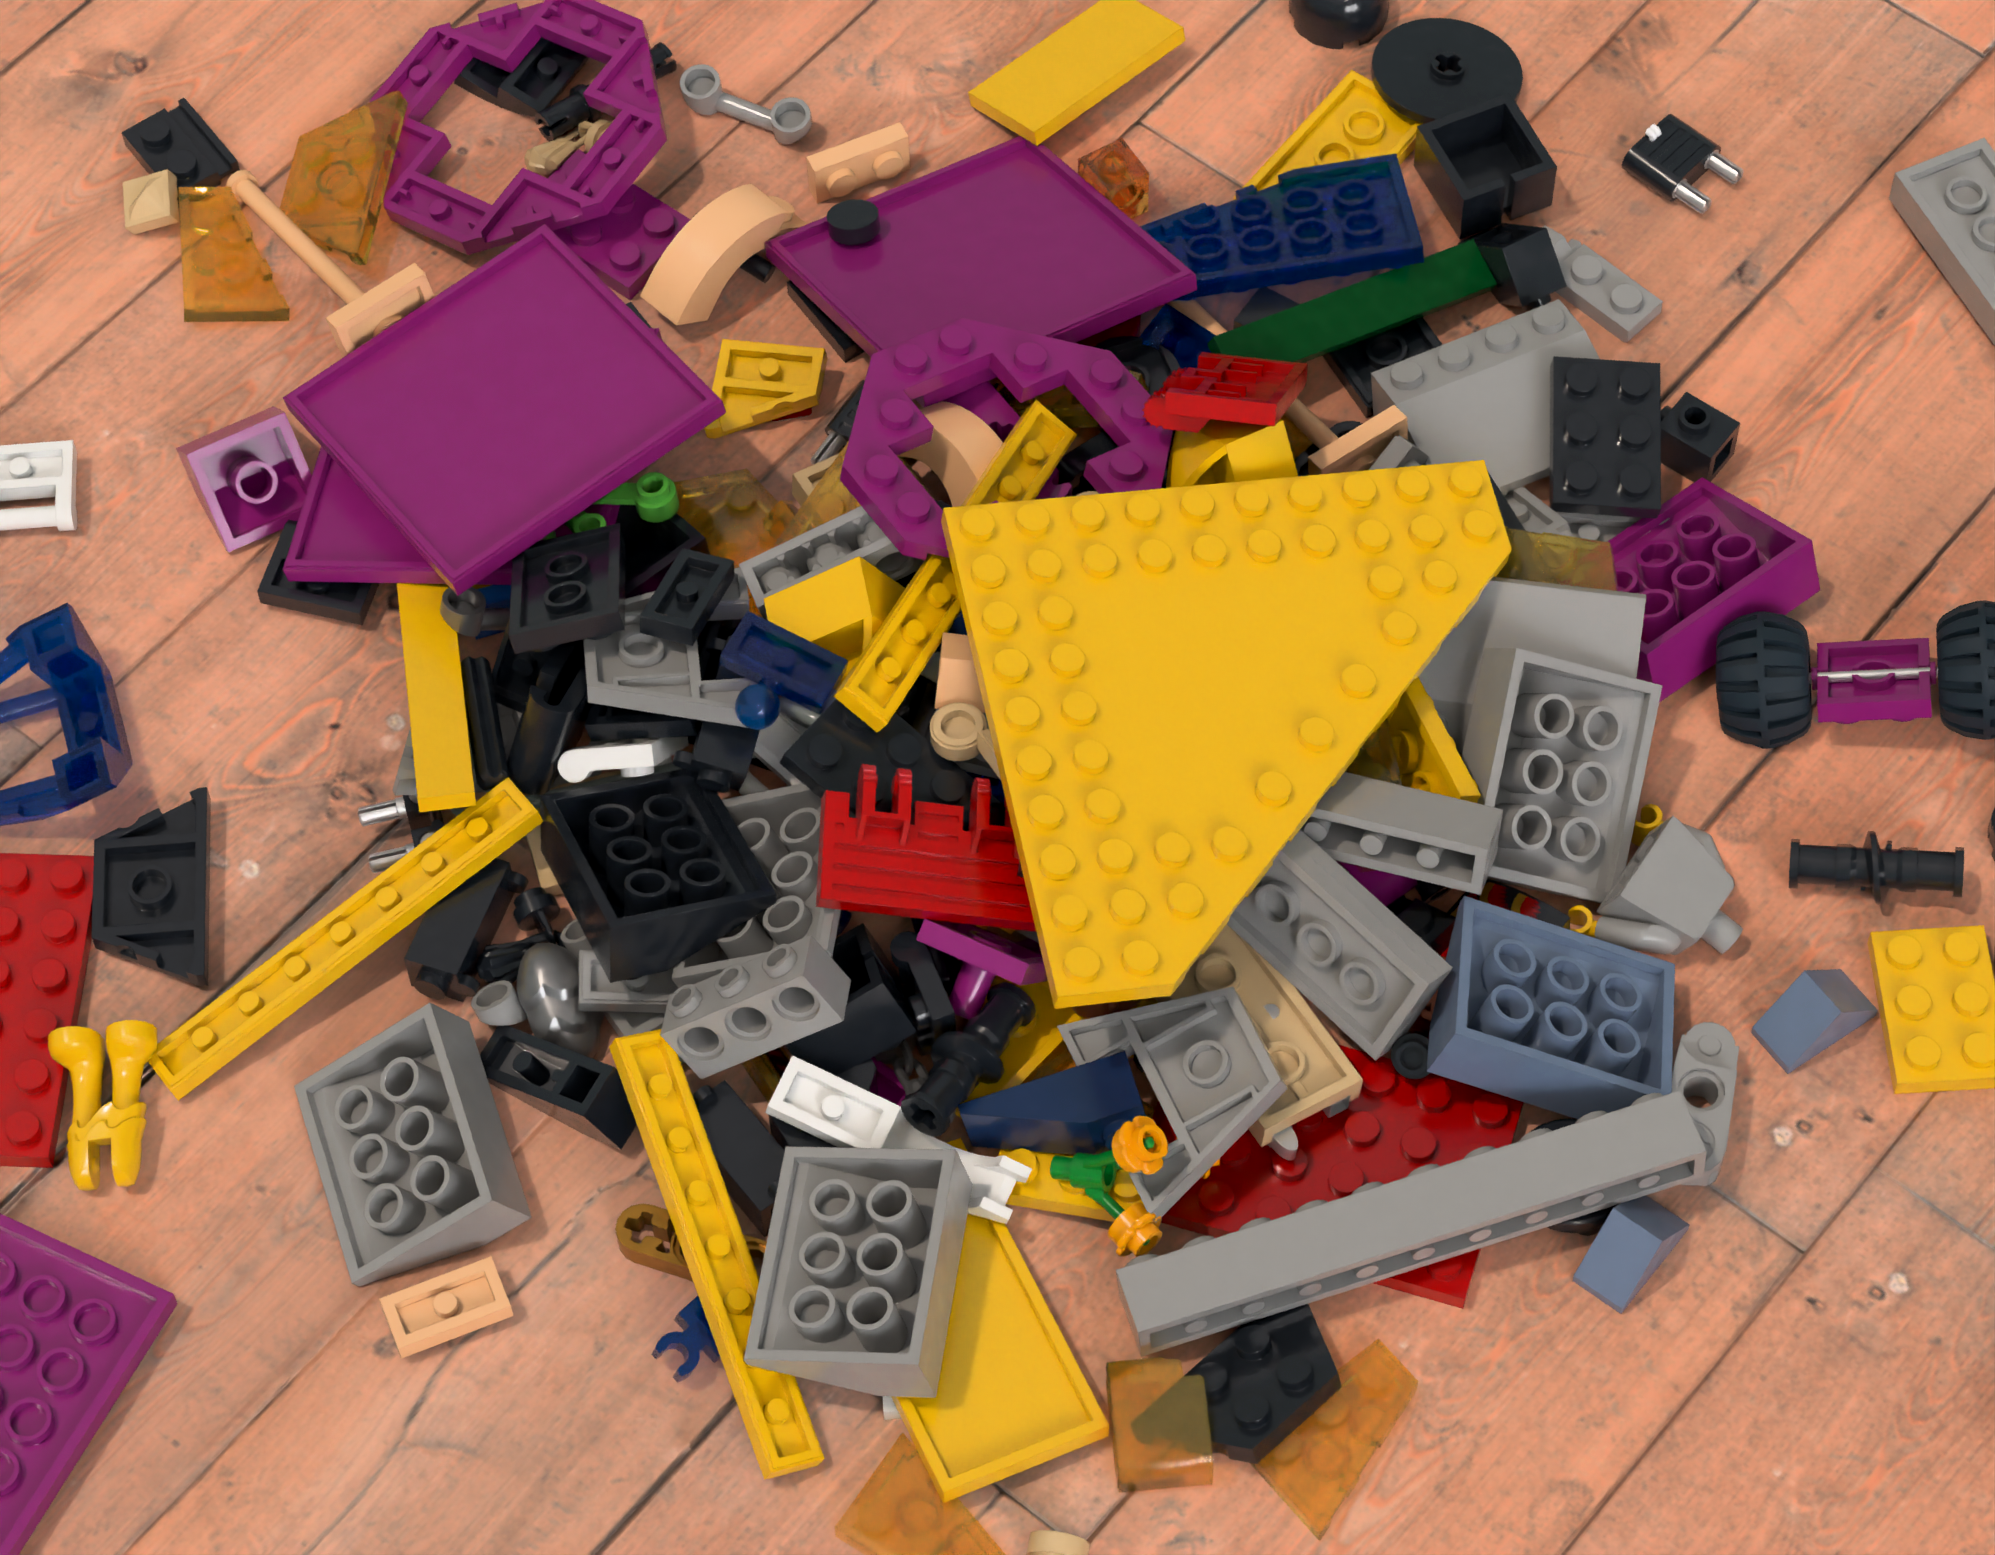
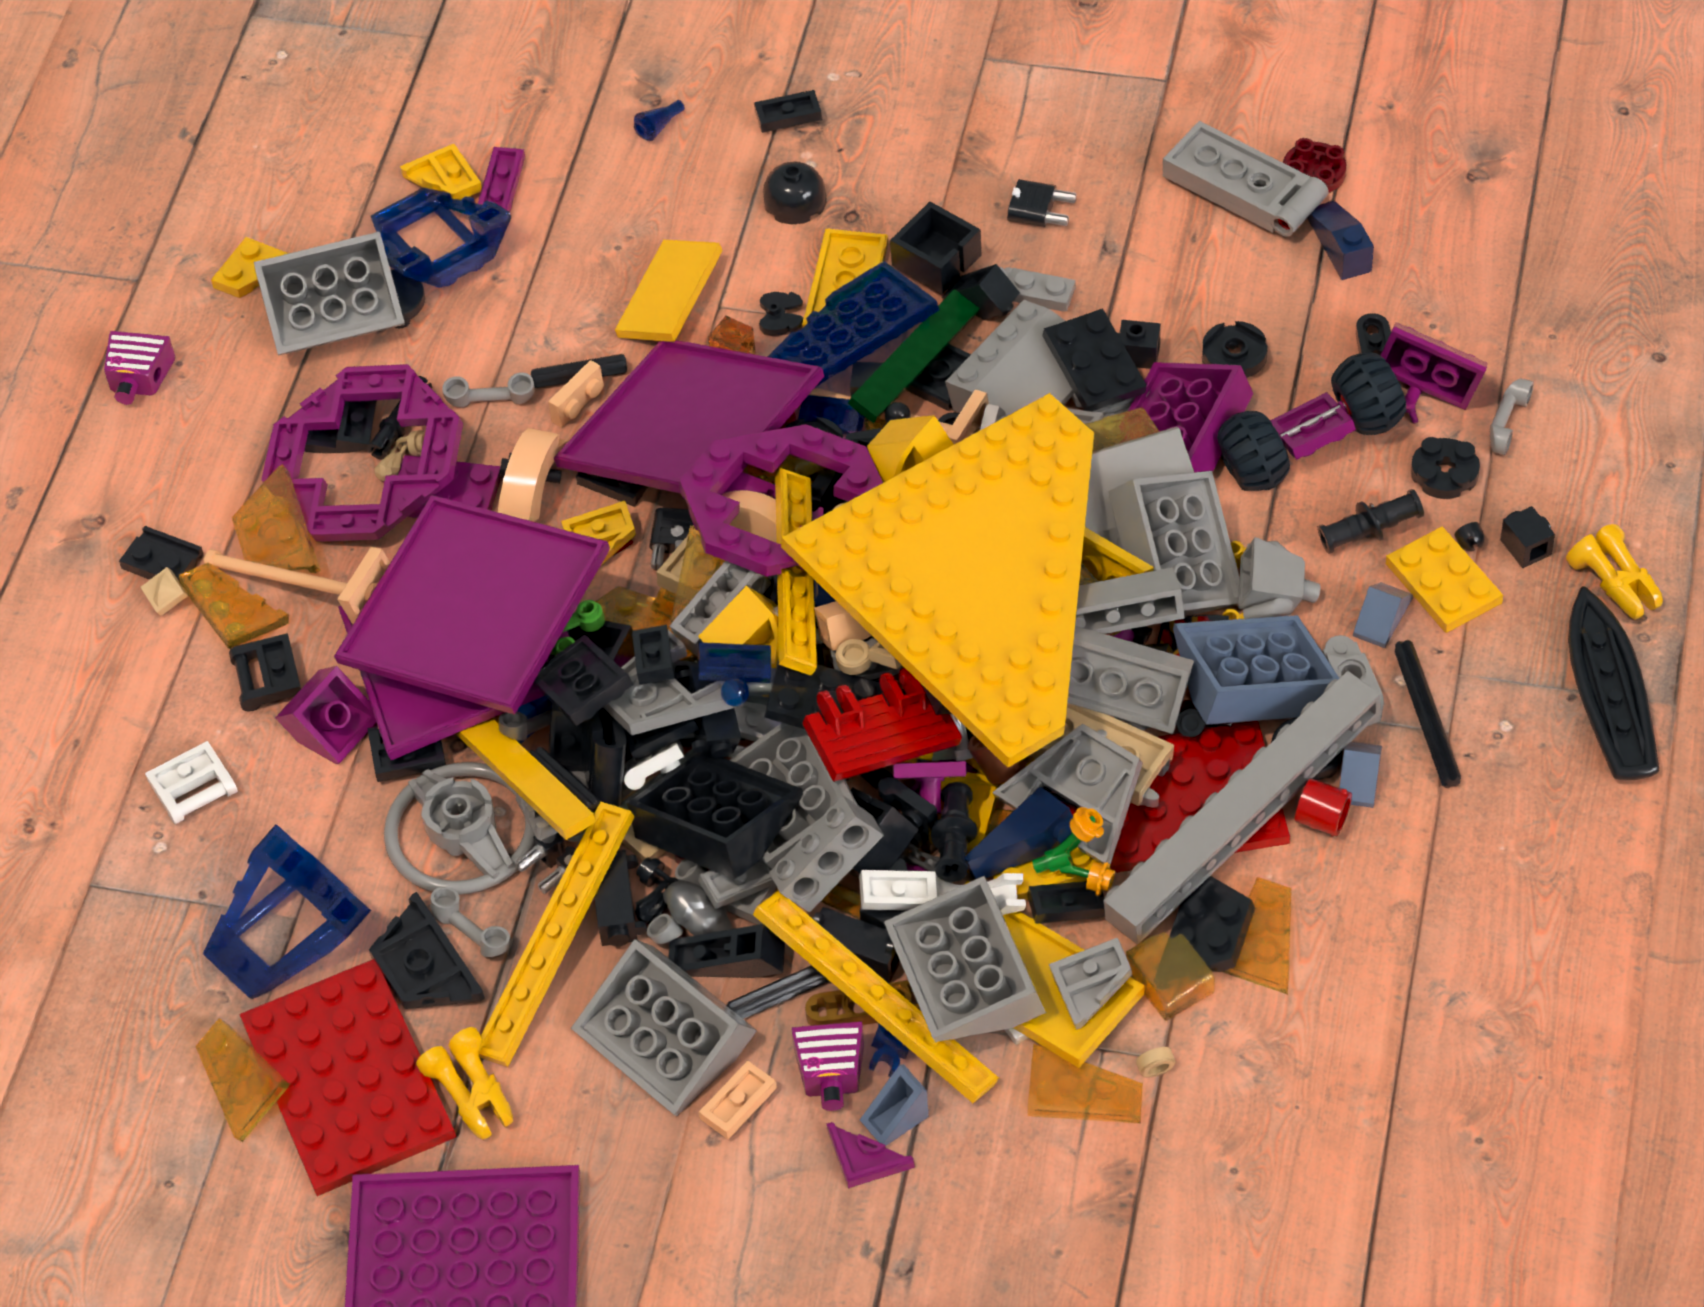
camera: 25 degrees left, 5 degrees down
(225, 382) = (276, 667): none -> black plate
(236, 831) = (445, 908): none -> light grey bar
(321, 735) = (467, 833): none -> light grey piece
(567, 1483) = (864, 1158): none -> magenta tile
(586, 1173) = (777, 992): none -> black axle
(604, 1314) = (829, 1060): none -> magenta torso
(649, 1433) = (896, 1107): none -> sand blue slope
(853, 222) = (600, 424): black tile -> none
(856, 123) = (564, 372): none -> black axle
(1033, 1378) = (1090, 979): none -> light grey wing
(1070, 1239) = (1064, 902): none -> black plate
(1203, 176) = (776, 320): none -> black piece
(1226, 390) = (876, 420): red hinge -> none
(1442, 68) = (876, 207): black piece -> none
(1537, 1280) = (1323, 807): none -> red piece
(1786, 1209) = (1427, 714): none -> black axle
(1836, 538) = (1241, 335): none -> black plate

